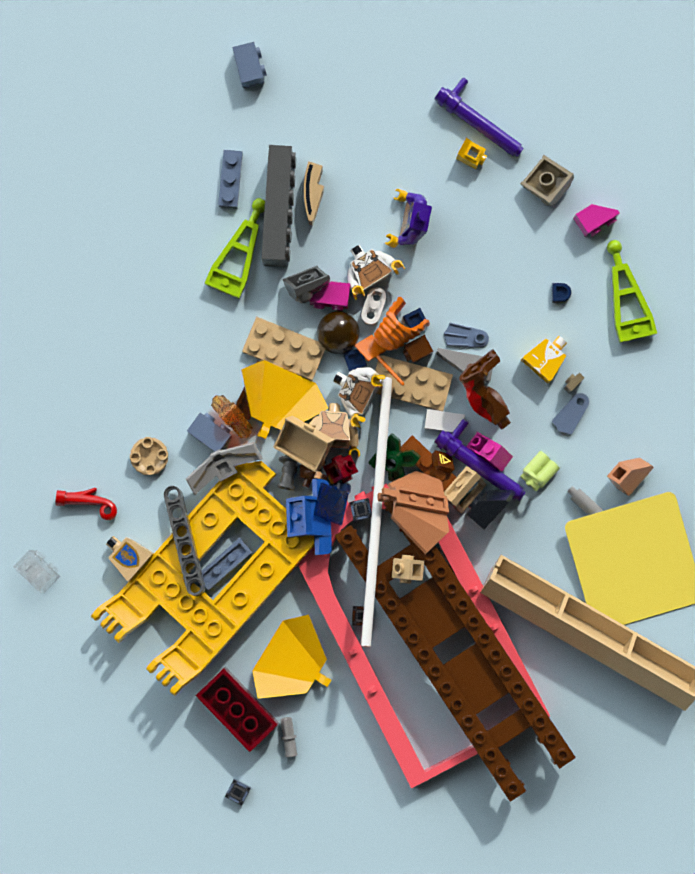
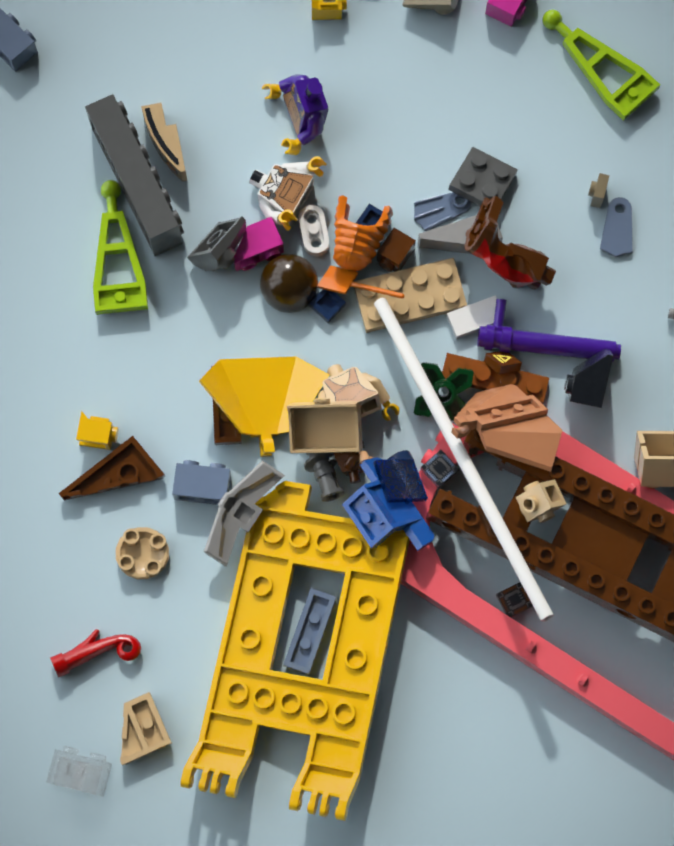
camera: 30 degrees left, 10 degrees down
(89, 566) = (142, 729): none -> tan wing
(128, 556) = (185, 688): torso -> none
(162, 362) = (96, 432): none -> yellow window
(166, 394) = (121, 468): none -> reddish brown wing
(188, 539) = (244, 628): dark grey beam -> none
(230, 178) = (58, 178): sand blue plate -> none
(232, 416) = (219, 445): clear orange piece -> none
(237, 709) = (430, 800): dark red brick -> none
(284, 348) = (234, 335): tan plate -> none
(288, 737) = (513, 800): light grey axle -> none
(290, 660) = (460, 701): yellow panel -> none
(340, 469) = (386, 437): dark red brick -> none
(358, 391) = (354, 333): torso -> none
(460, 488) = (543, 375): tan tile -> none
(490, 451) = (551, 318): dark pink slope -> none
(503, 332) = (482, 177): none -> dark grey plate
(539, 471) = (621, 312): yellowish green piece -> none
(546, 358) = (550, 181): yellow torso -> none
(560, 292) = (521, 101): dark blue tile -> none

